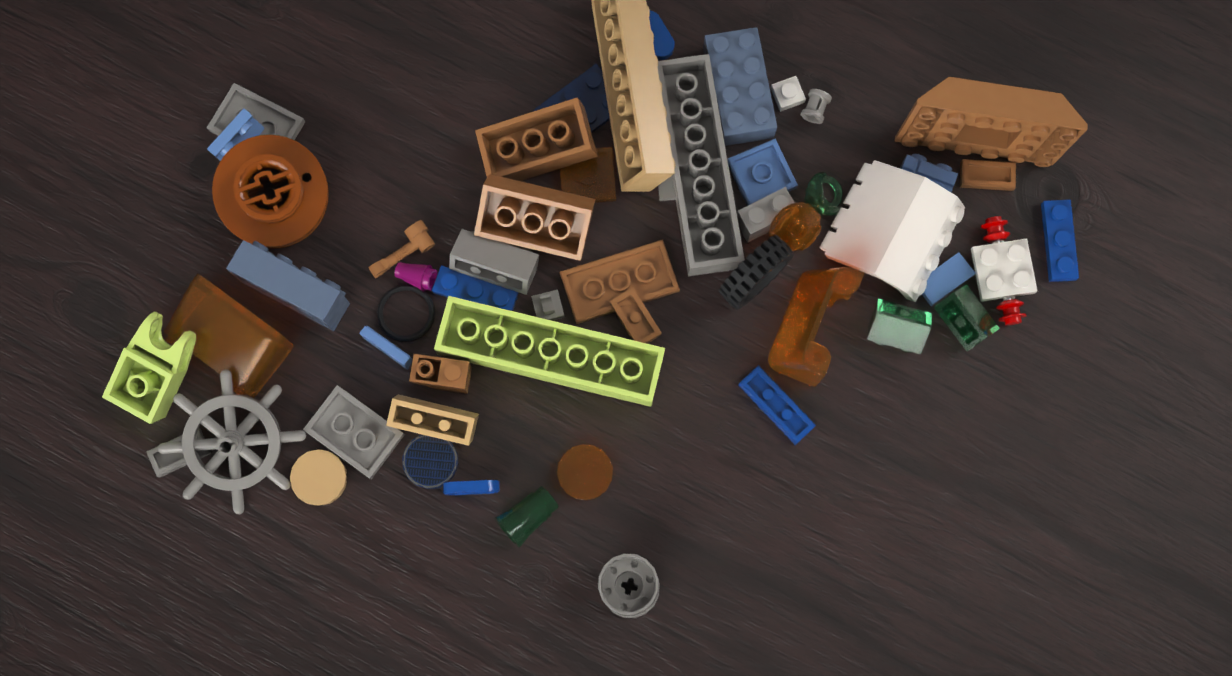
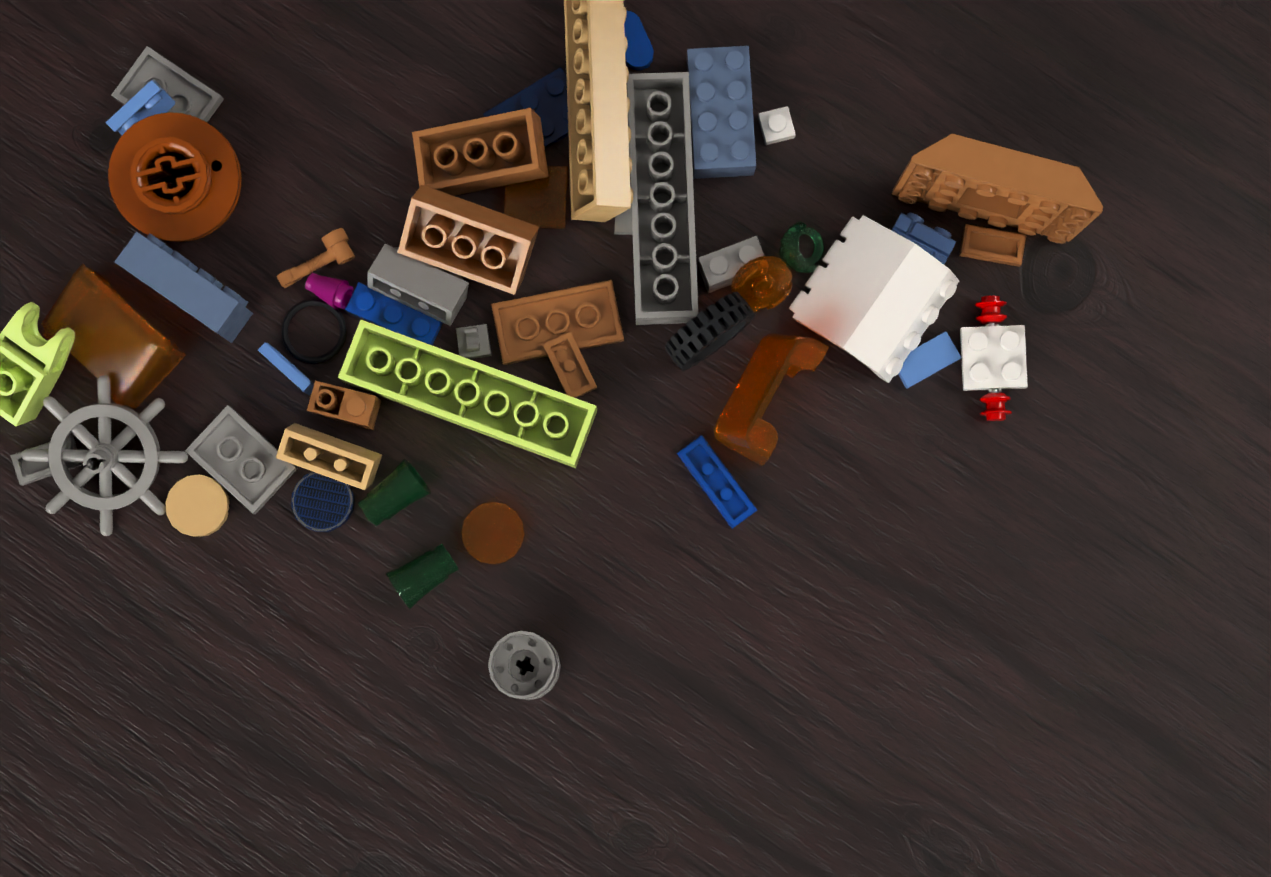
camera: 10 degrees right, 5 degrees up
(471, 487) = (364, 536): blue tile -> none
(493, 447) = (394, 493): none -> clear green plant
(761, 171) = (734, 214): medium blue tile -> none
(816, 105) = (806, 144): light grey bush -> none
(899, 326) = (865, 409): clear green brick -> none
(966, 318) = (942, 408): clear green brick -> none
(1059, 240) = (1063, 330): blue plate -> none

